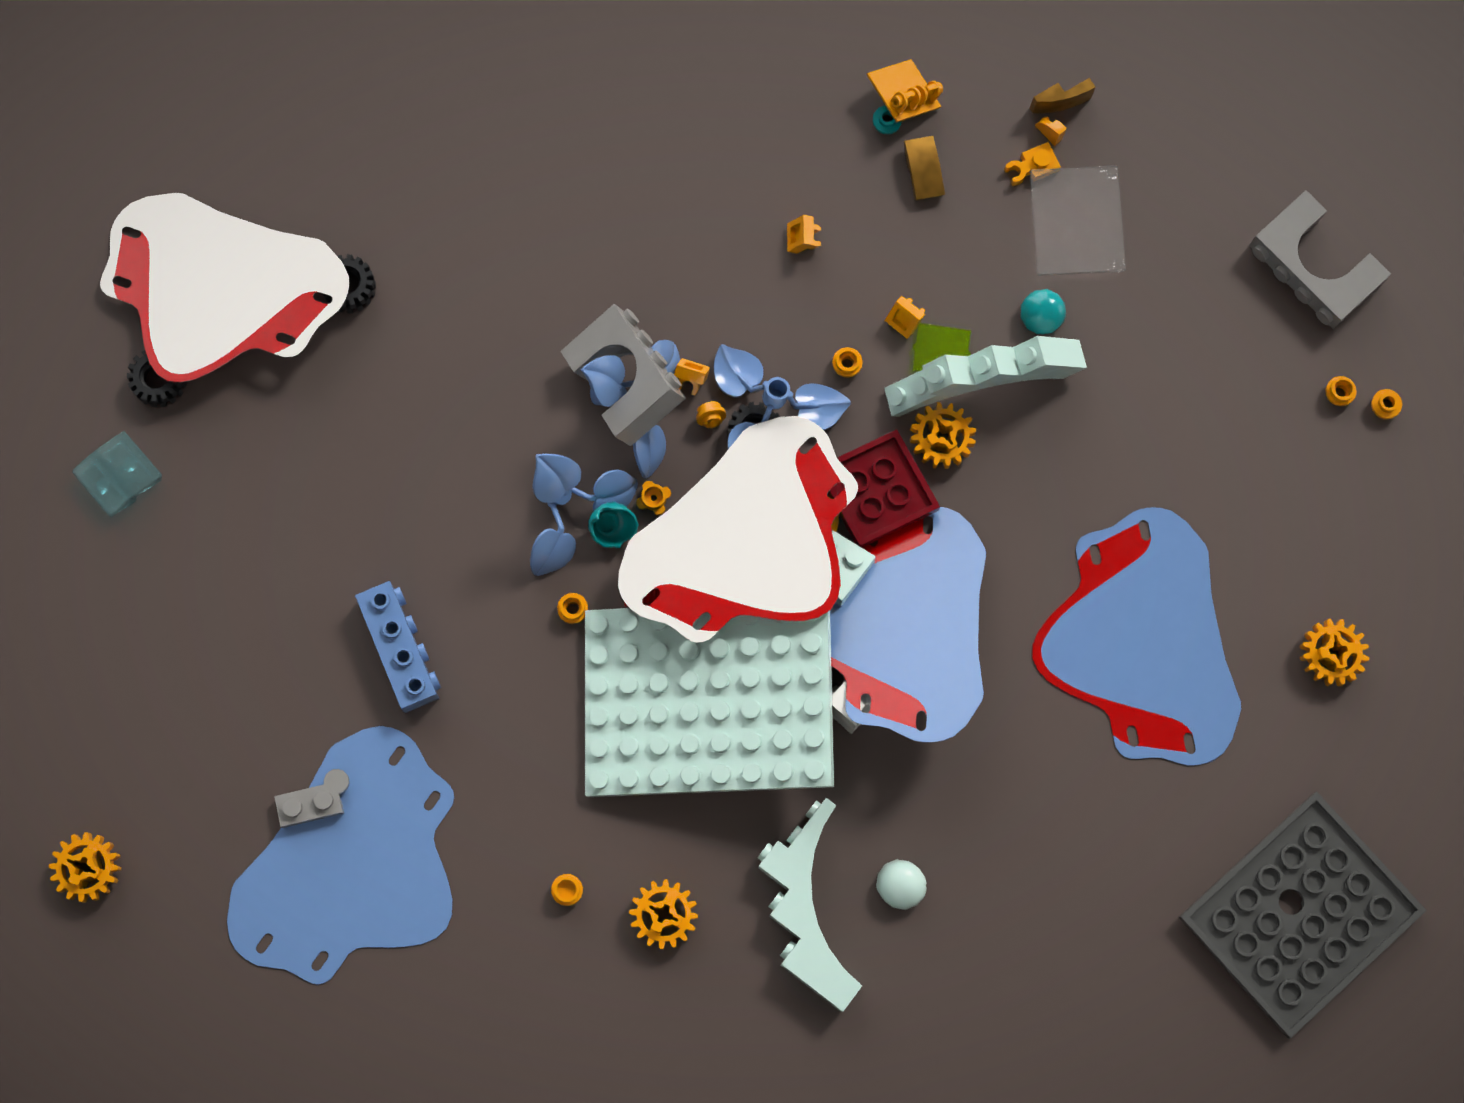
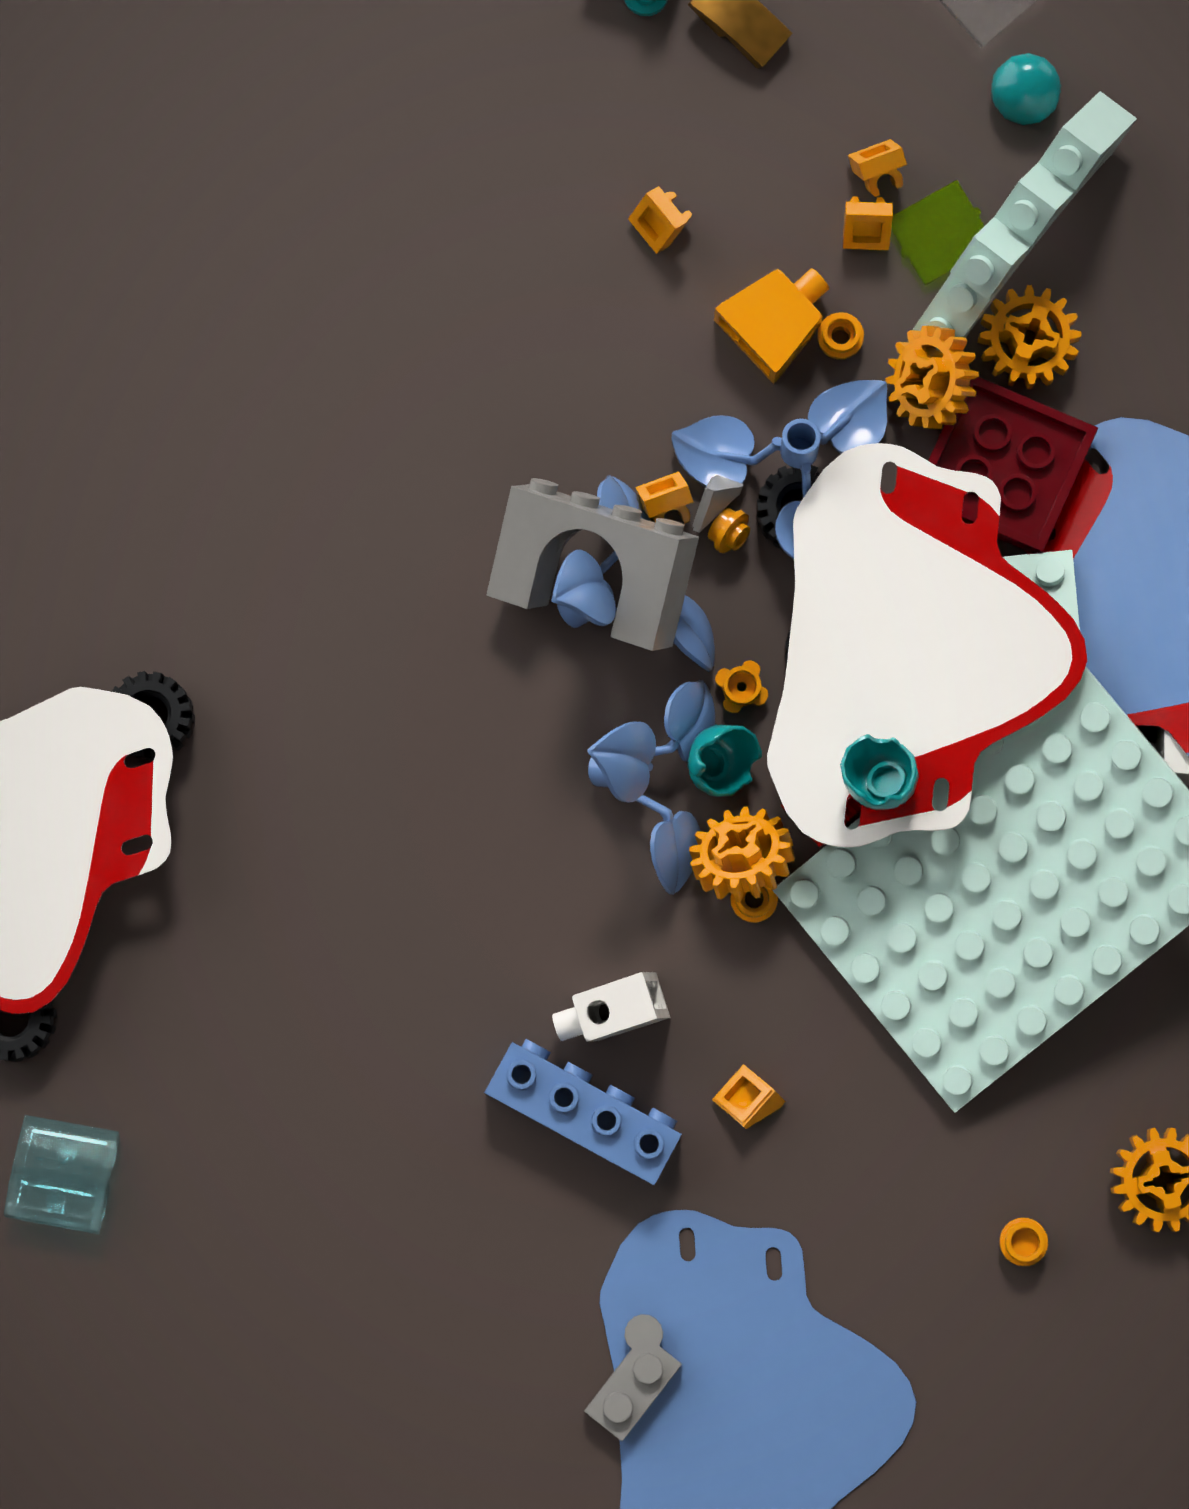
camera: 30 degrees left, 5 degrees up
(456, 606) = (631, 1004): none -> white torso
(487, 706) = (748, 1098): none -> light orange slope
(582, 578) = (738, 854): none -> light orange gear
(677, 583) = (879, 772): none -> teal hair
(714, 392) = (716, 497): none -> light grey slope
(819, 327) = (773, 319): none -> light orange torso
(874, 415) = (932, 377): none -> light orange gear
(935, 289) = (877, 161): none -> light orange tile

